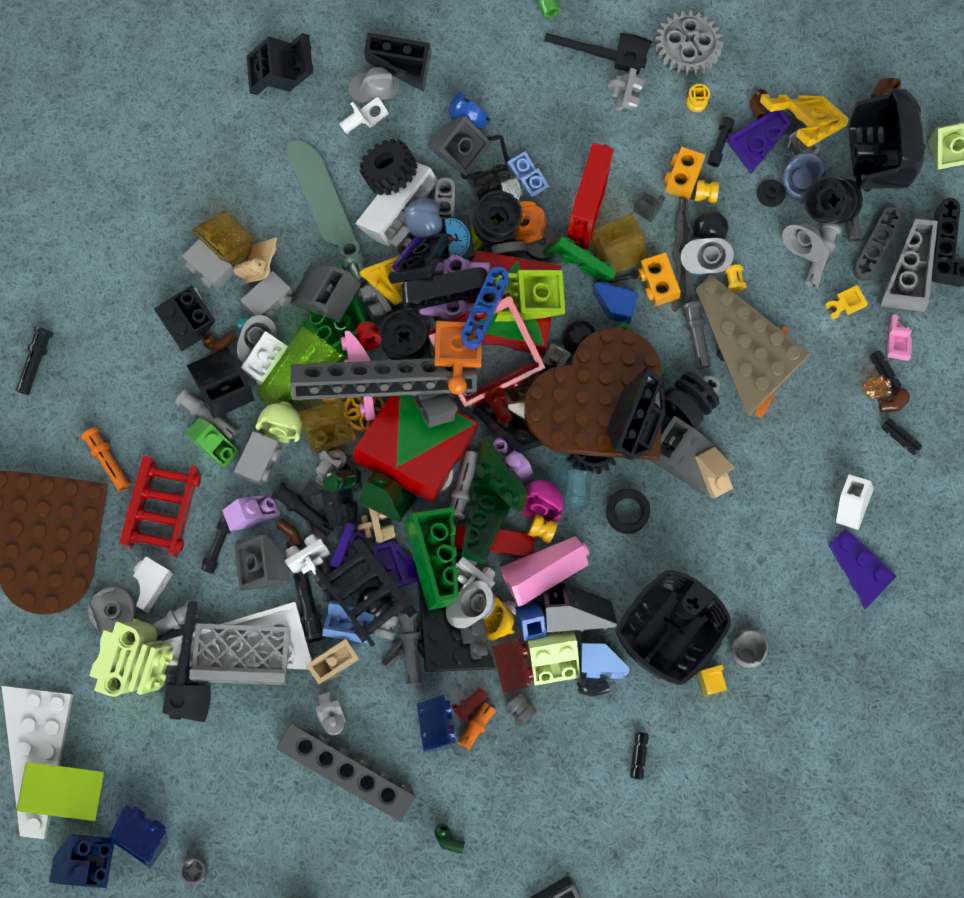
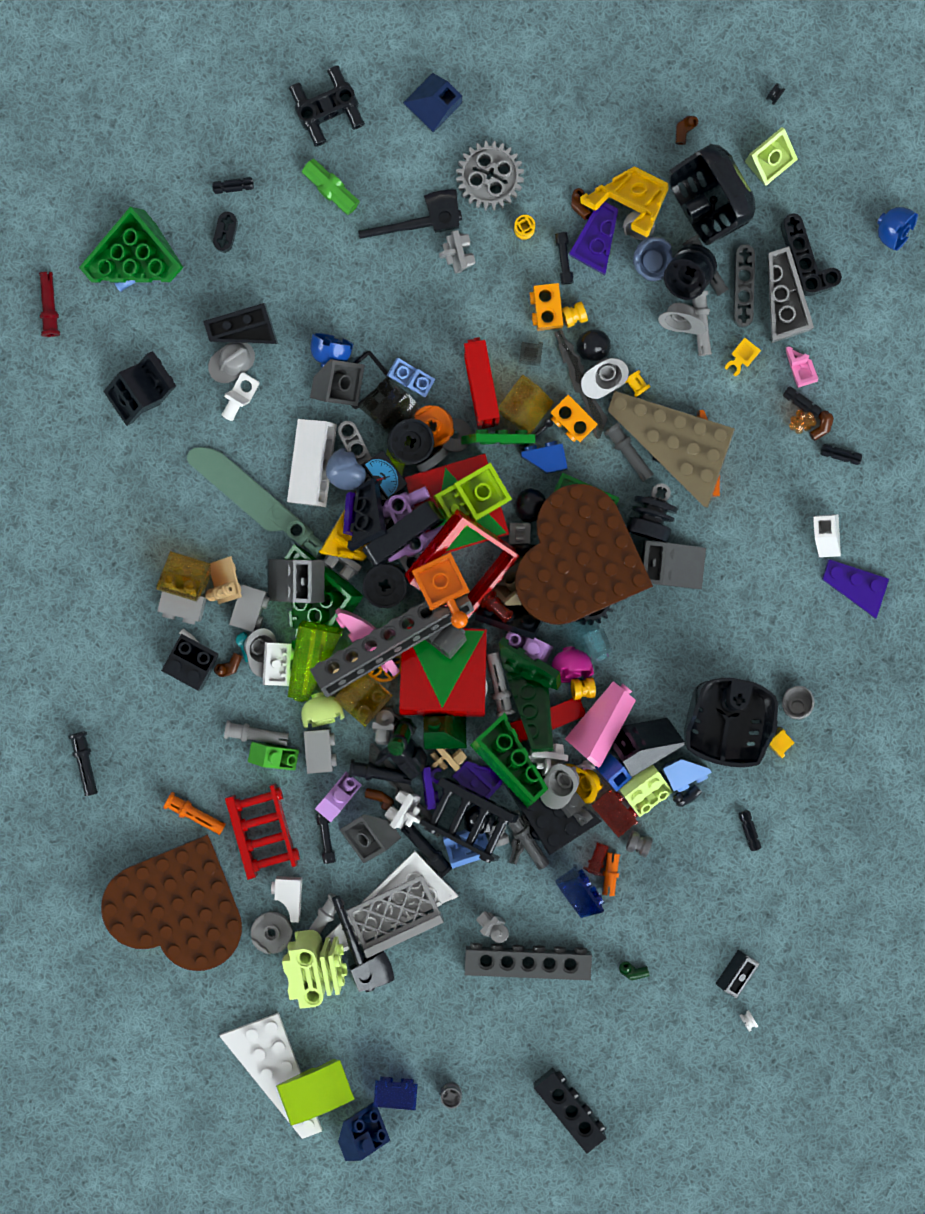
camera: 20 degrees left, 15 degrees up
(221, 382) = (251, 702): black slope -> none
(332, 662) = (472, 885): tan slope -> none
(368, 335) = (357, 604): red wheel -> none
(394, 176) = (301, 437): black tyre -> none
(401, 239) = (335, 497): light grey tile -> none
(483, 307) = (444, 540): blue beam -> none
(626, 494) = (660, 634): black tyre -> none
(638, 415) = (619, 566): black wedge -> none
(714, 471) = (701, 568): tan slope -> none
(771, 193) = (630, 284): black piece -> none

